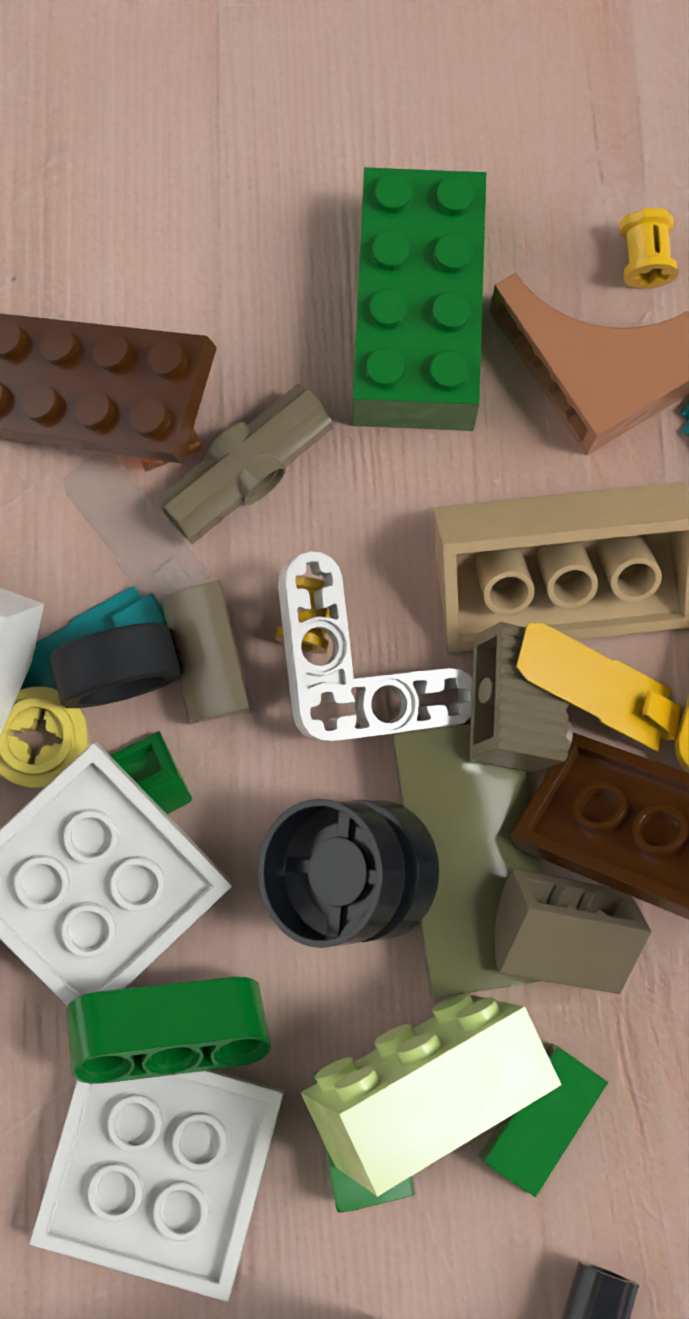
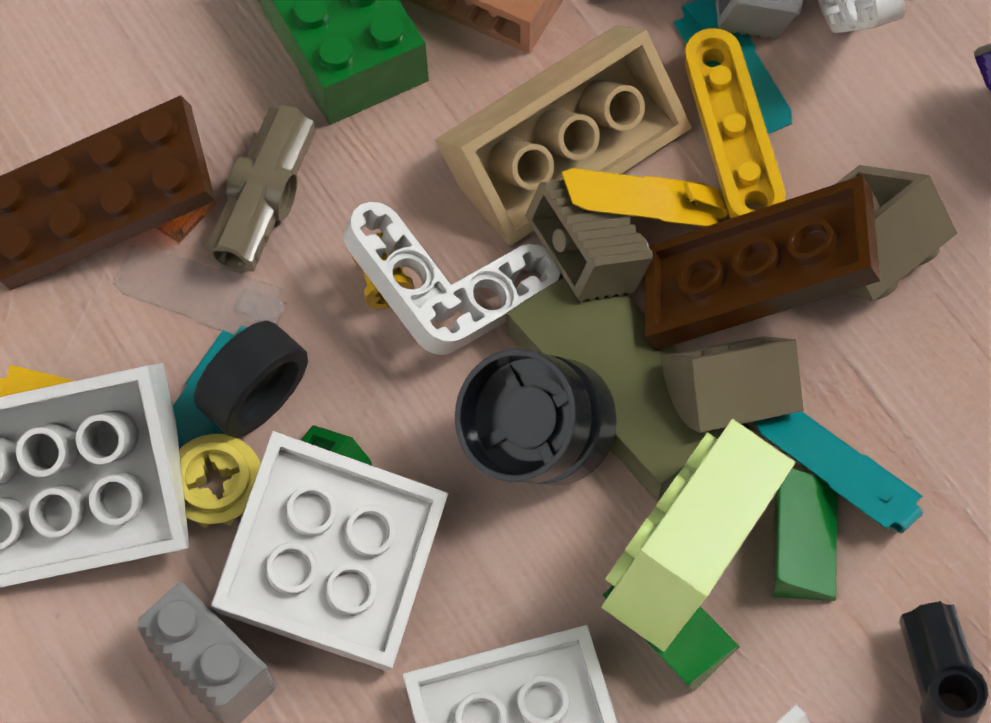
camera: 30 degrees left, 15 degrees down
(166, 1030) = (463, 624): green beam -> none
(206, 652) = (337, 347): dark tan brick -> none
(624, 1079) = (844, 469): none -> teal piece

